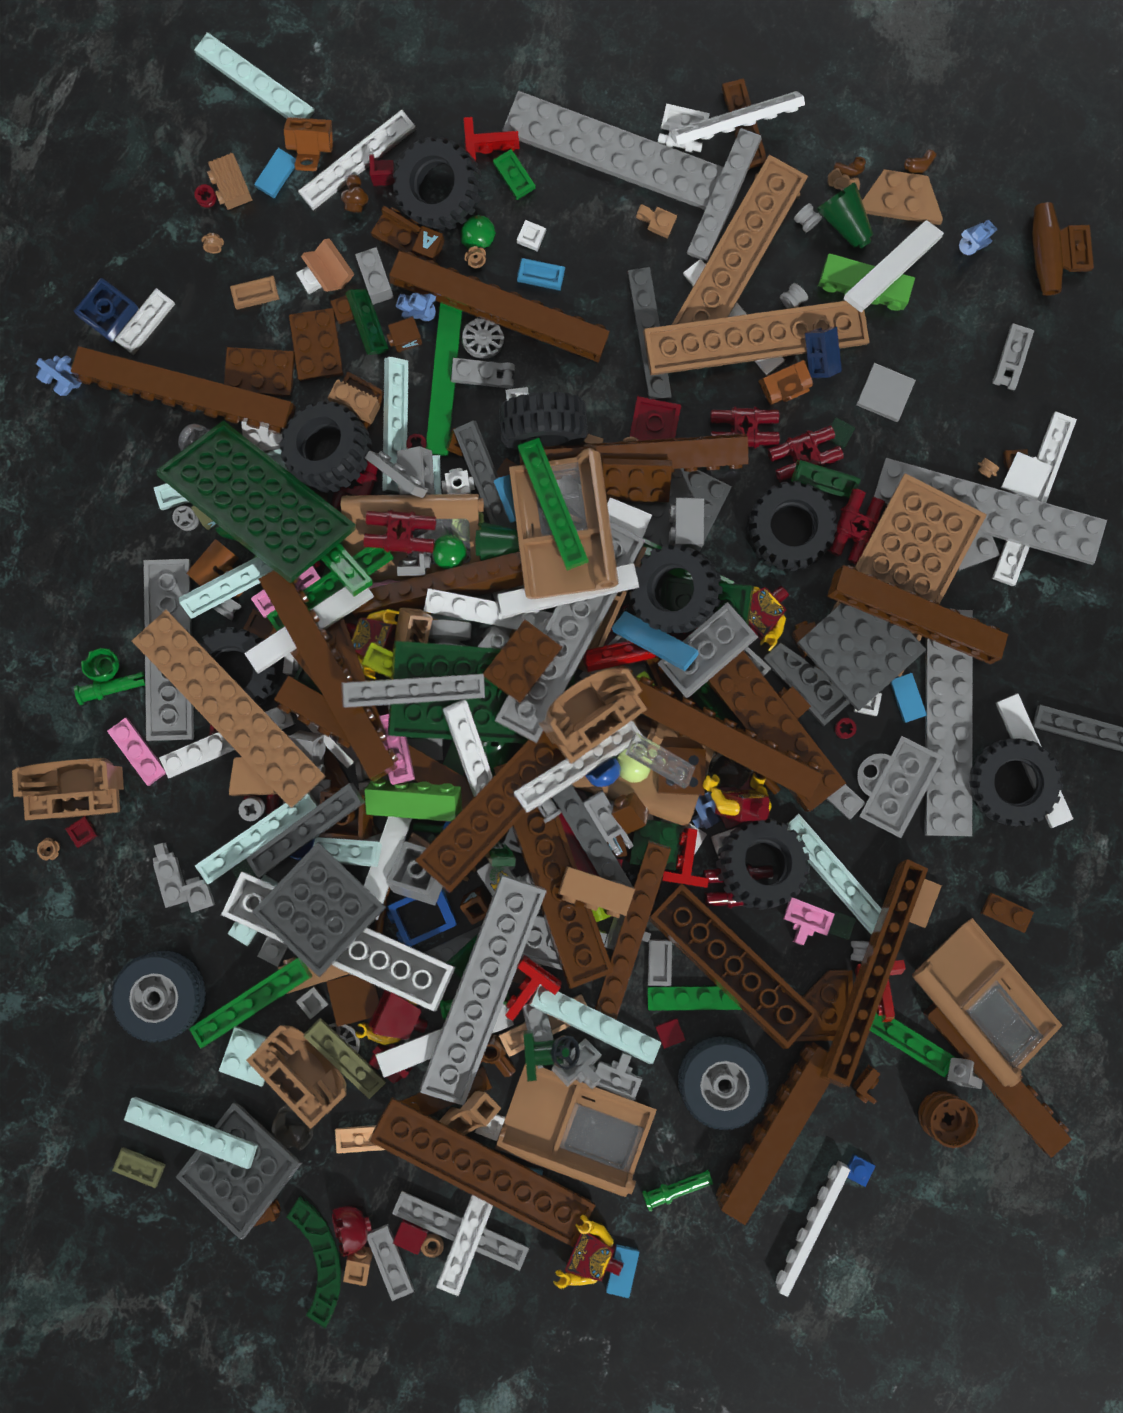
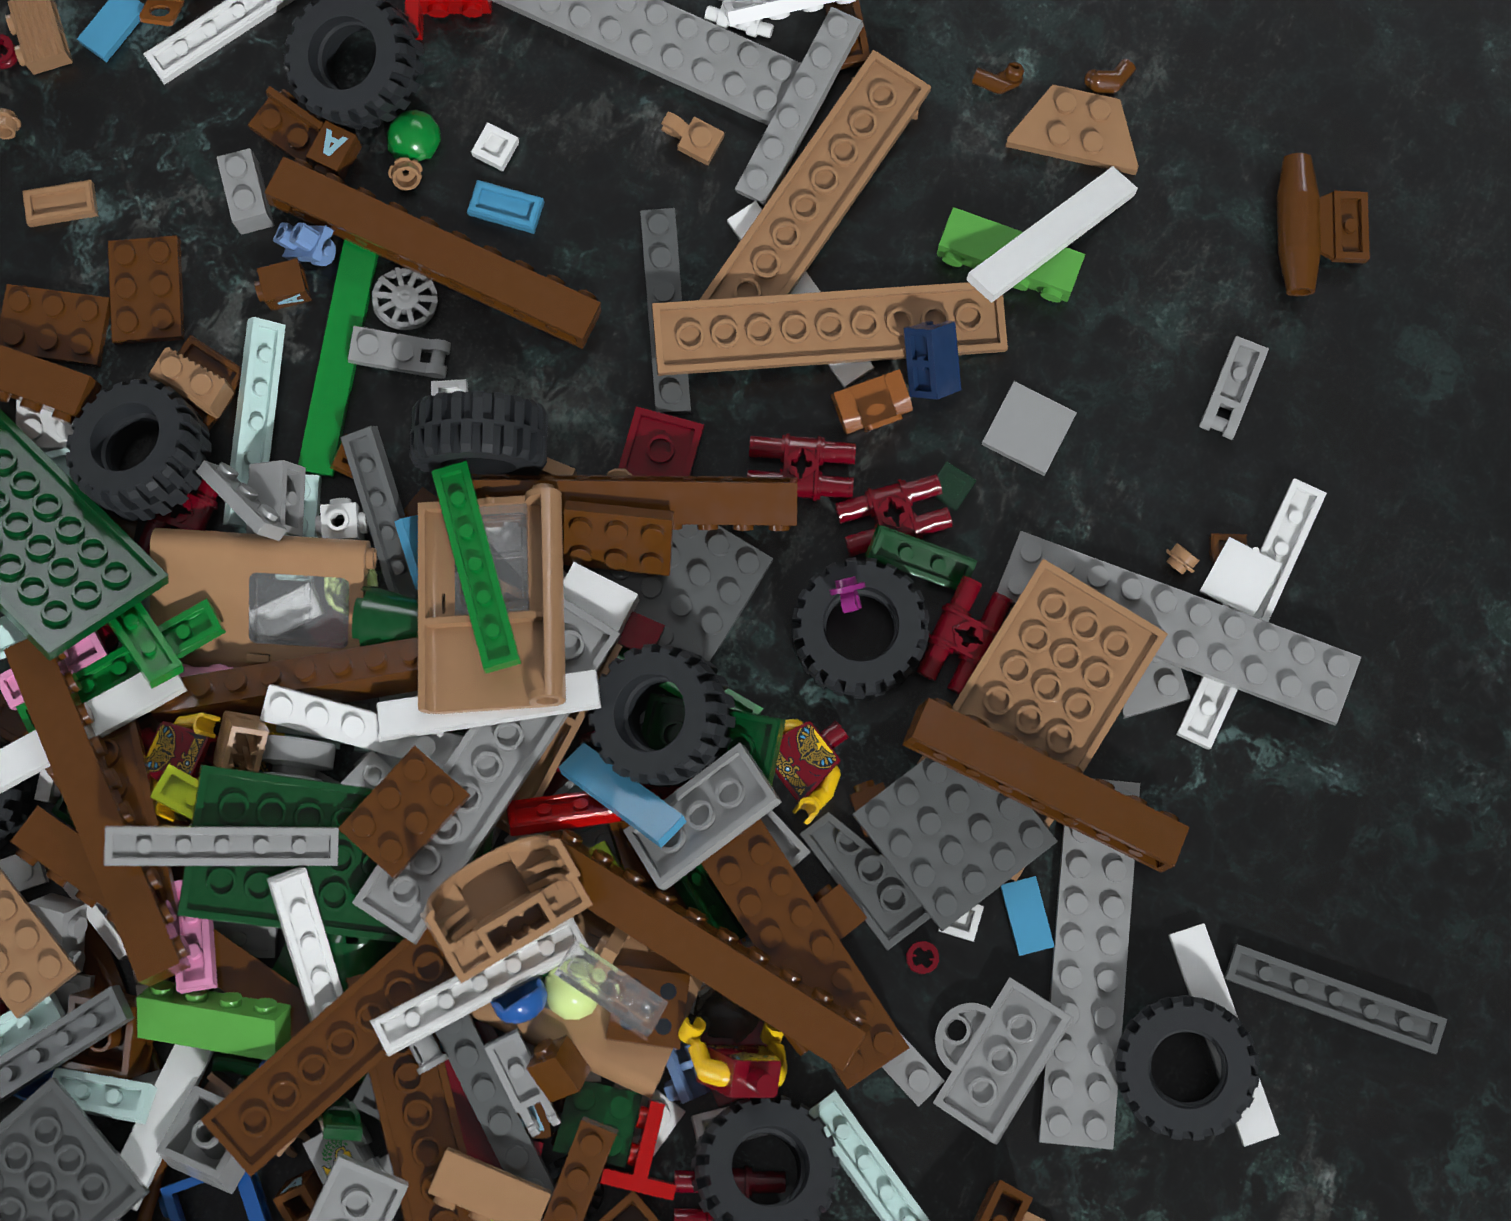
camera: 10 degrees right, 5 degrees down
(308, 280) = (150, 187): white plate -> none
(328, 266) = (175, 172): nougat panel -> none
(342, 309) = (196, 238): reddish brown plate -> none
(355, 196) = (228, 69): reddish brown animal -> none
(367, 321) = (227, 261): dark green tile -> none
(381, 171) = (271, 32): dark red panel -> none
(393, 522) = (227, 576): dark red pin -> none
(412, 567) = (253, 648): light grey bracket -> none
(415, 437) = (284, 444): dark red bush -> none
(449, 552) = (313, 628): green hair -> none
(514, 174) = (477, 52): green plate -> none
(654, 539) = (640, 631): none -> dark red tile
(688, 523) = (692, 612): light grey brick -> none
(785, 500) = (848, 593): none -> magenta plate
(794, 297) = (895, 270): light grey wheel -> none
(807, 217) = (927, 150): light grey wheel -> none
(841, 181) = (987, 99): medium nougat piece -> none
(848, 216) = (989, 151): dark green cone -> none
(976, 237) = (1188, 199): medium blue hips -> none

